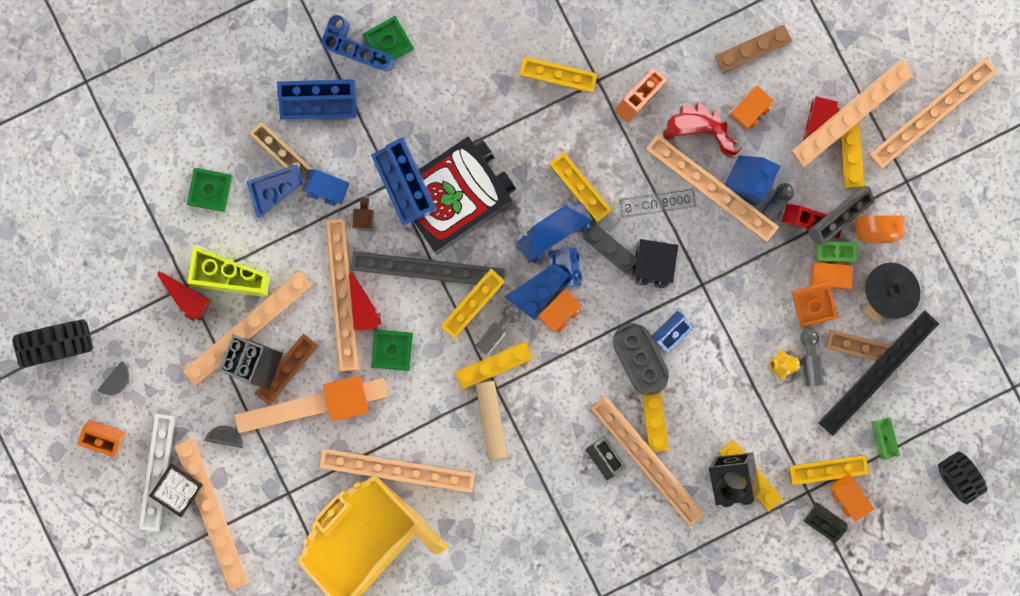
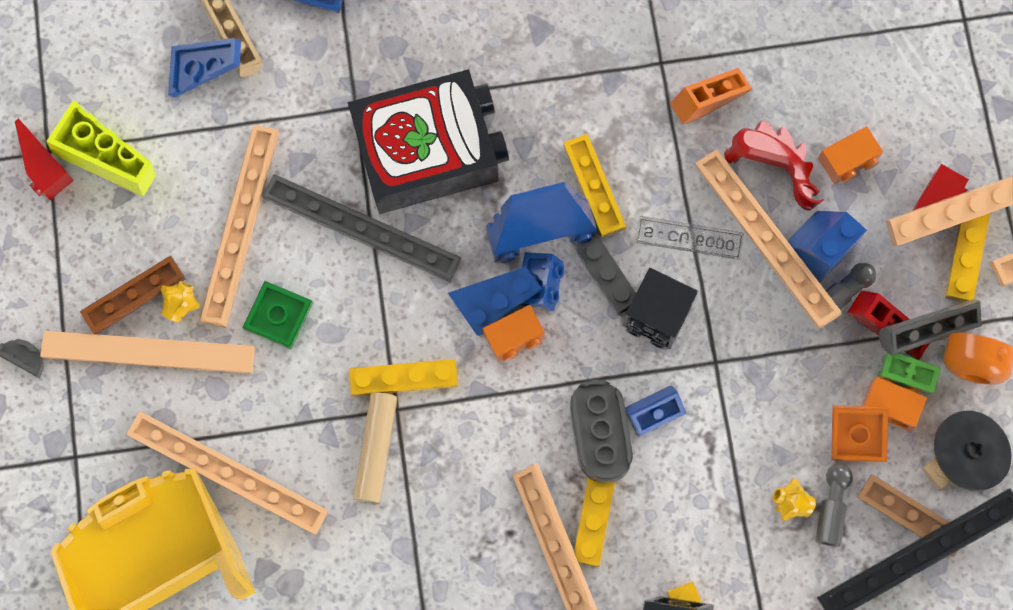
camera: 25 degrees right, 10 degrees down
(209, 189) = (122, 44): green tile -> none
(249, 326) = (103, 228): light nougat plate -> none
(251, 361) = (88, 265): black brick -> none
(320, 364) = (178, 301): none -> yellow rock
(325, 186) = (266, 81): blue brick -> none
(346, 398) = (194, 355): orange tile -> none
(363, 218) = (302, 135): reddish brown brick -> none
(364, 312) = (258, 253): red slope -> none
(403, 182) = (364, 96): blue brick -> none
(472, 303) = (403, 286): yellow plate -> none
(497, 330) = (423, 333): dark grey piece -> none
(558, 74) = (612, 38): yellow plate -> none
(605, 458) = (510, 549): pearl dark grey slope -> none
(753, 48) = (876, 84): medium nougat plate -> none

